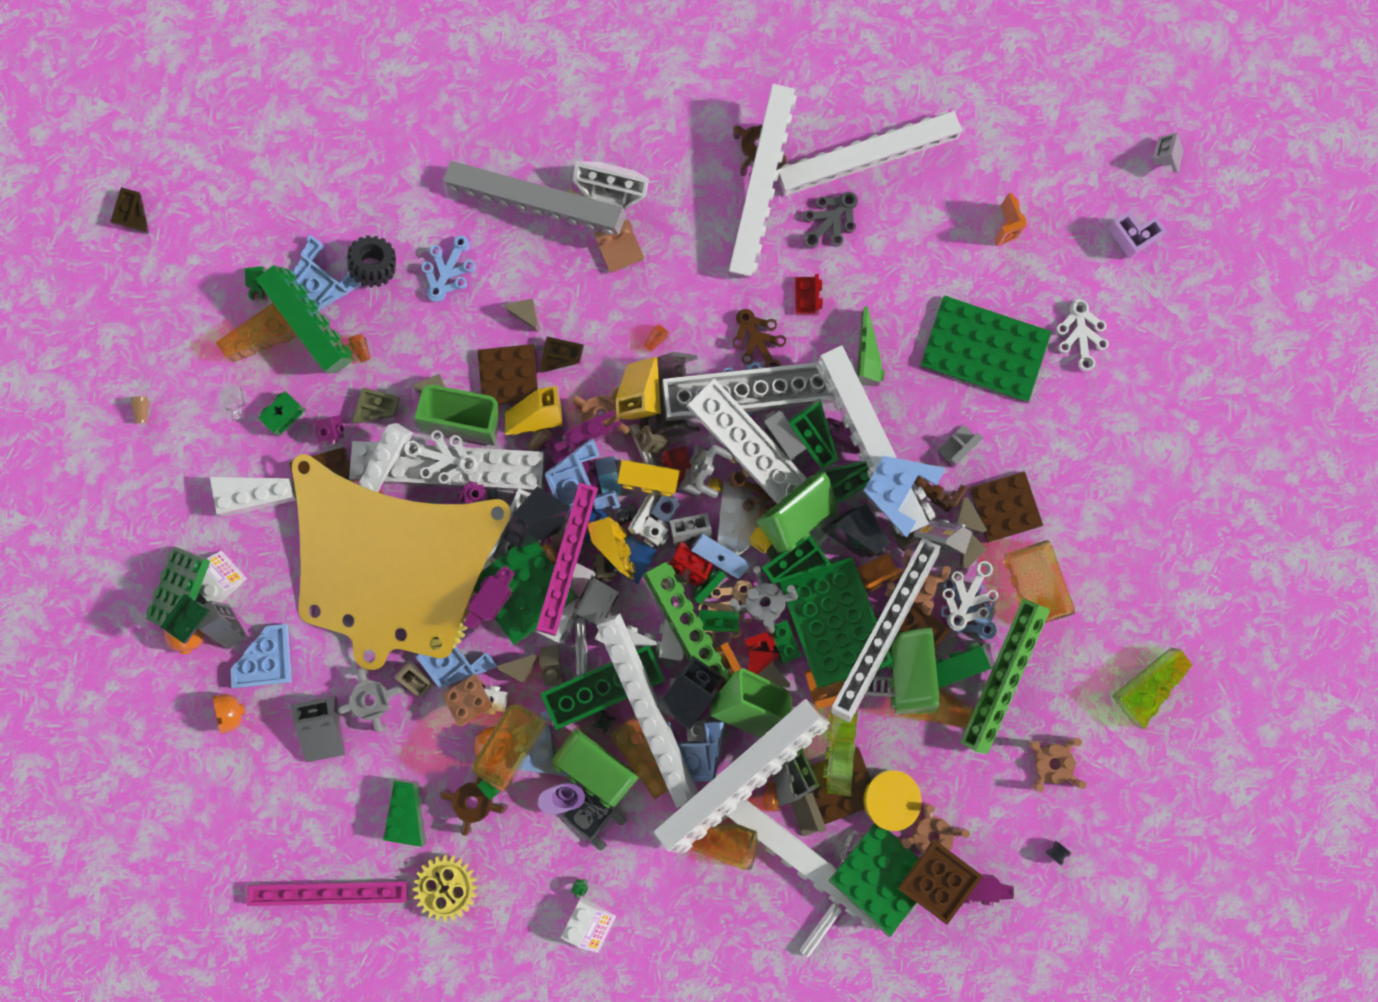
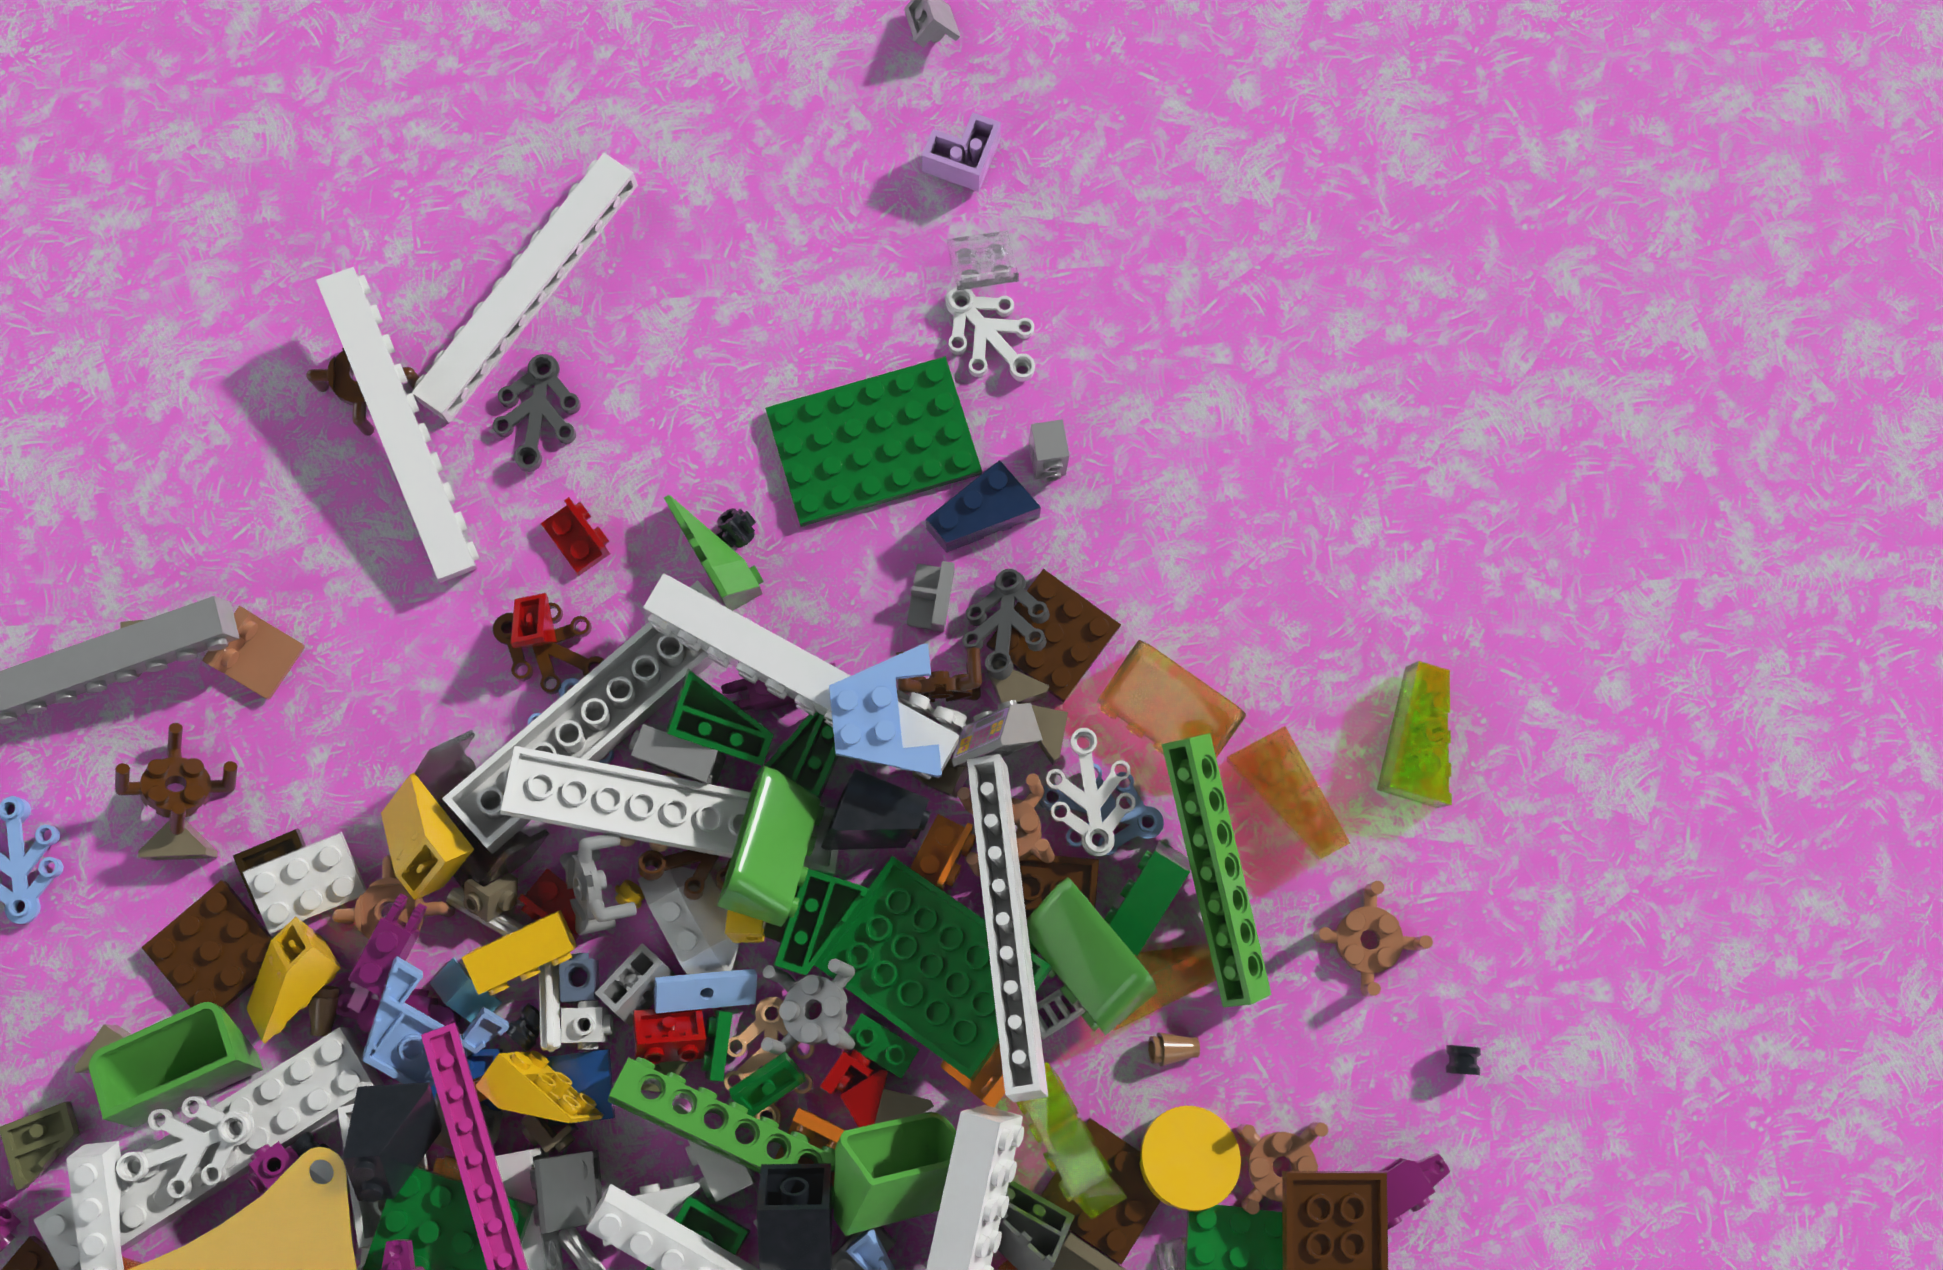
camera: 45 degrees left, 5 degrees down
(548, 278) = (173, 770): none -> reddish brown plate
(571, 372) = (305, 882): none -> white plate
(610, 183) = (178, 574): white wedge -> none
(656, 337) = (397, 744): clear orange cone -> none
(759, 323) = (532, 622): none -> red slope
(888, 345) = (736, 527): none -> black gear
(921, 744) = (1172, 1048): none -> medium nougat cone
(988, 482) = (1004, 620): none -> dark grey plant
(1015, 221) = (793, 246): orange bracket -> none
(1016, 420) = (982, 508): none -> dark blue wedge
(1068, 662) = (1287, 786): none -> clear yellow wedge
(1070, 414) = (1048, 450): none -> light grey brick
(1106, 295) = (982, 260): none -> clear plate

